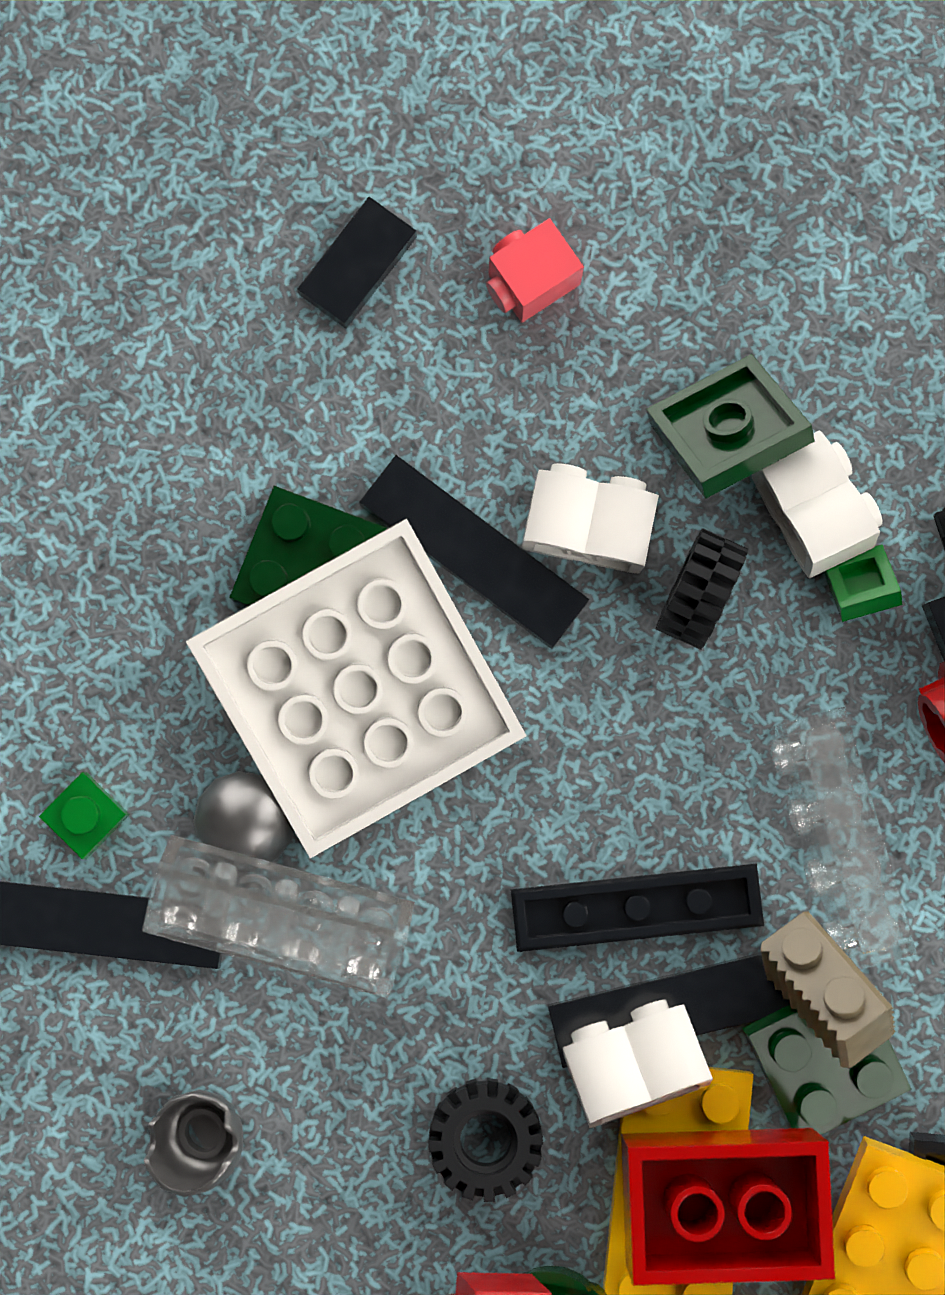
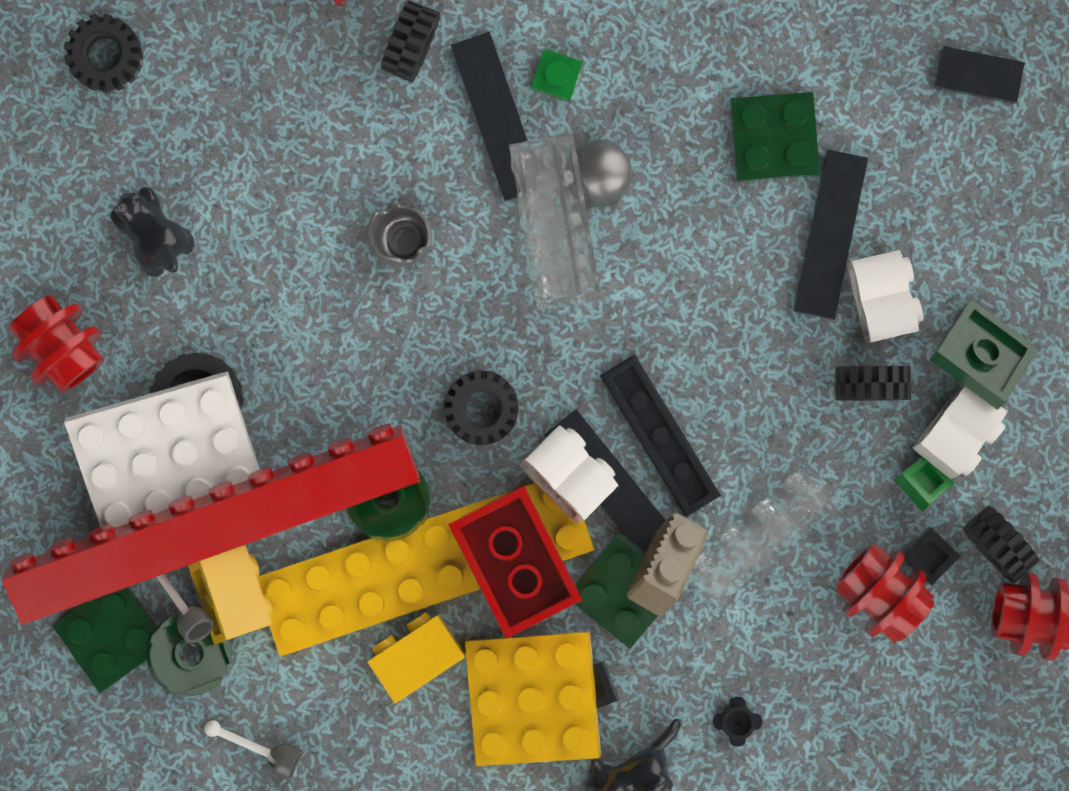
camera: 60 degrees right, 5 degrees up
(356, 688) = (713, 203): white plate -> none
(532, 270) = (1025, 186): coral brick -> none

